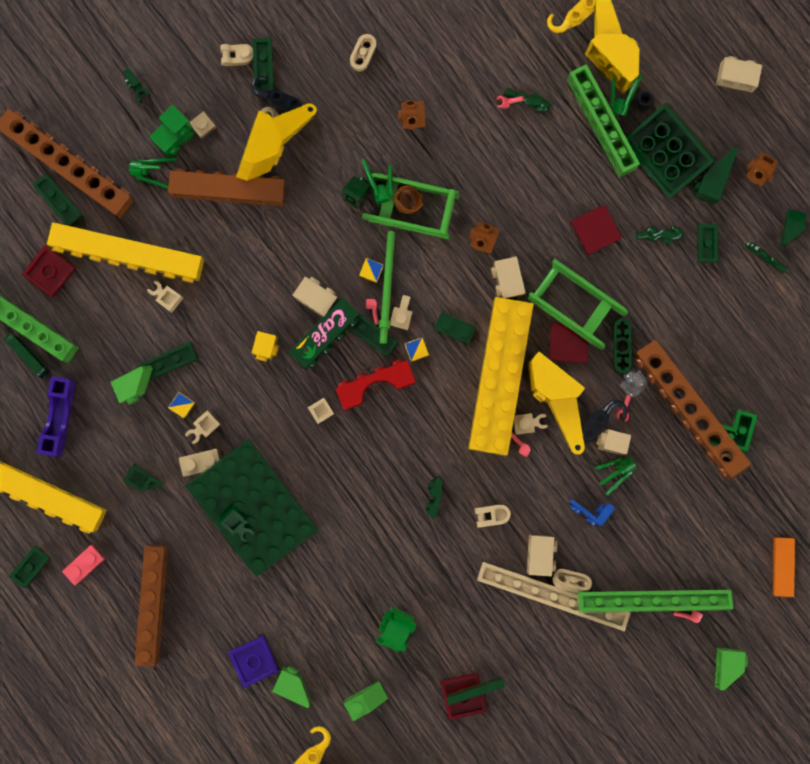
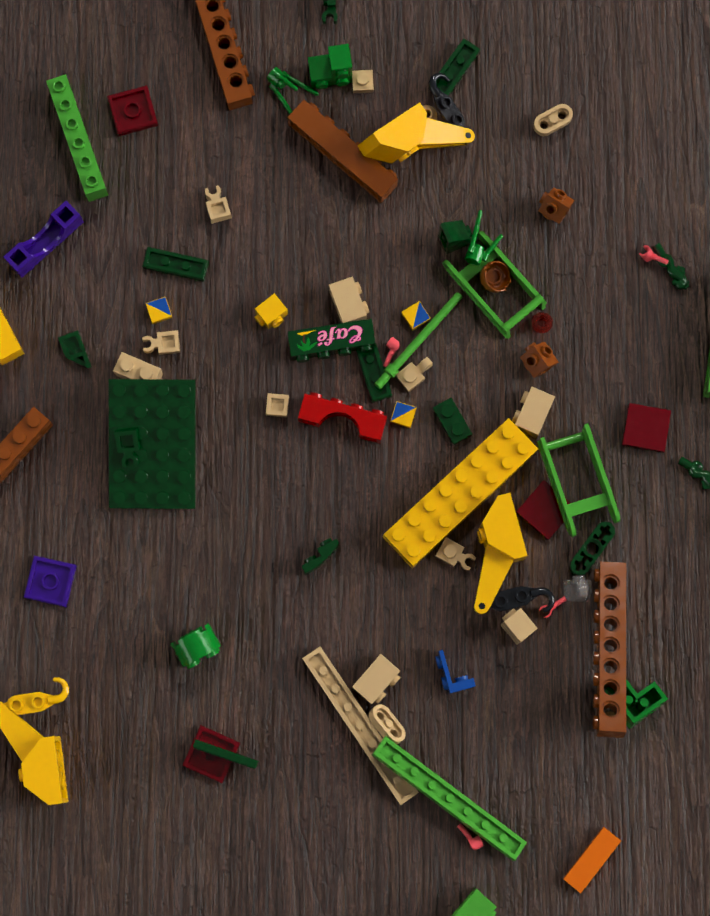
camera: 40 degrees right, 5 degrees down
(26, 355) = (58, 168): dark green beam -> none
(58, 200) = (187, 55): dark green tile -> none
(125, 252) = (212, 142): yellow brick -> none
(132, 384) = (130, 260): bright green slope -> none
(243, 53) = (445, 45): tan plate -> none
(292, 687) = (67, 628): bright green slope -> none
(365, 700) = (122, 690): bright green slope -> none
(469, 204) = (546, 318): none -> clear red plate
(499, 515) = (367, 614): tan plate -> none
(524, 449) = (433, 575): coral hand -> none
(624, 467) = (512, 657): green plant -> none

